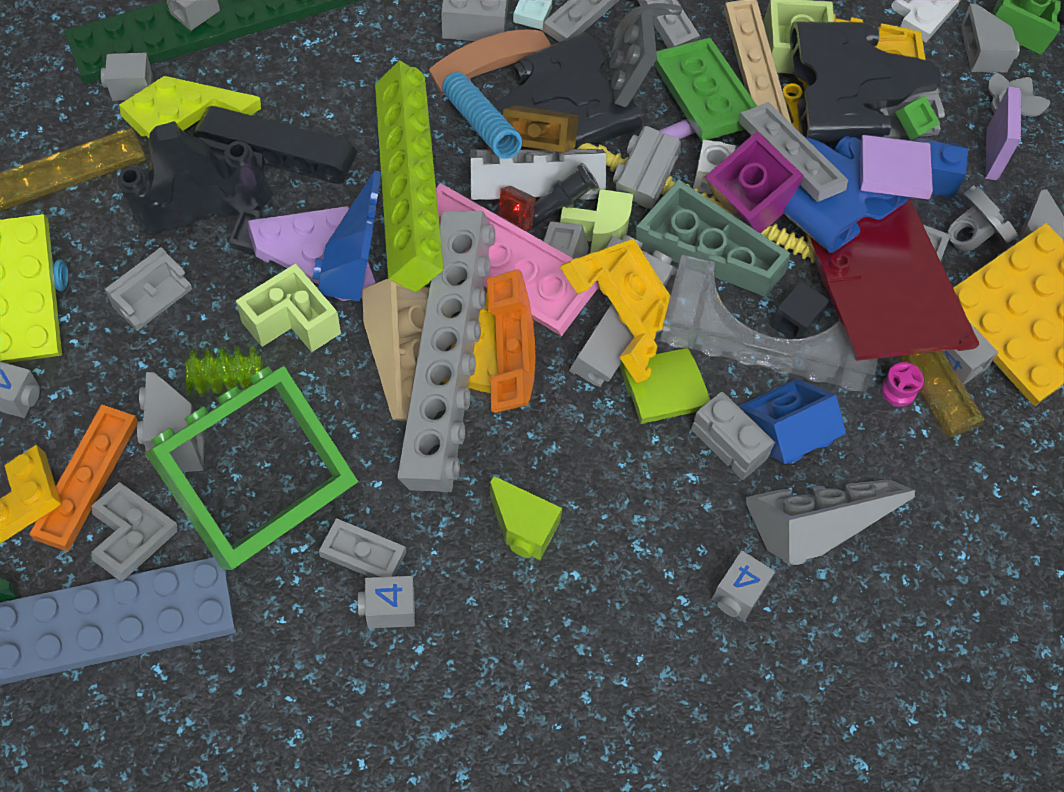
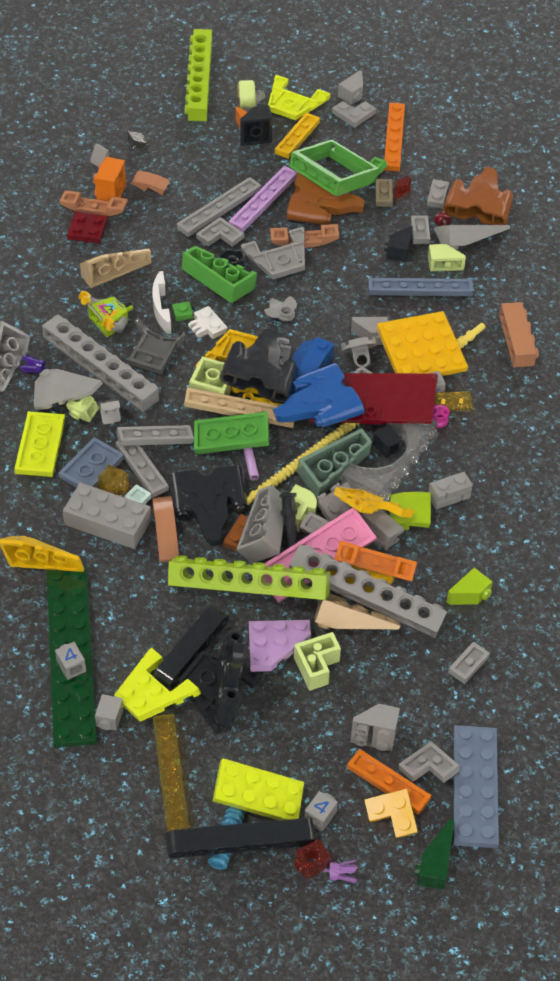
camera: 70 degrees left, 10 degrees down
(148, 289) = (273, 730): light grey hinge -> none
(221, 370) = (343, 701): clear neon green piece -> none
(233, 555) = (455, 709): bright green window -> none
(347, 251) = (293, 614): blue wedge -> none
(388, 602) = (501, 656): light grey brick -> none
(482, 115) = (222, 533): dark azure piece -> none
(517, 207) = (291, 534): clear red plate -> none
(543, 128) = (240, 510): pearl gold brick -> none
(635, 49) = (212, 449): dark grey piece -> none
(648, 166) = (281, 472): light grey brick -> none
(711, 156) = (284, 447): white brick -> none
(742, 586) = (529, 512): light grey brick -> none
(755, 182) = (316, 426): magenta slope -> none
(796, 419) = (445, 460): blue slope -> none
(819, 521) = (502, 473): light grey wedge -> none
(820, 175) = (304, 403): light grey plate -> none
(895, 167) = (327, 366): lavender tile -> none
(917, 117) = (289, 350): bright green plate -> none
(988, 41) = (242, 305): light grey slope -> none
(1003, 133) = (312, 320): lavender tile -> none

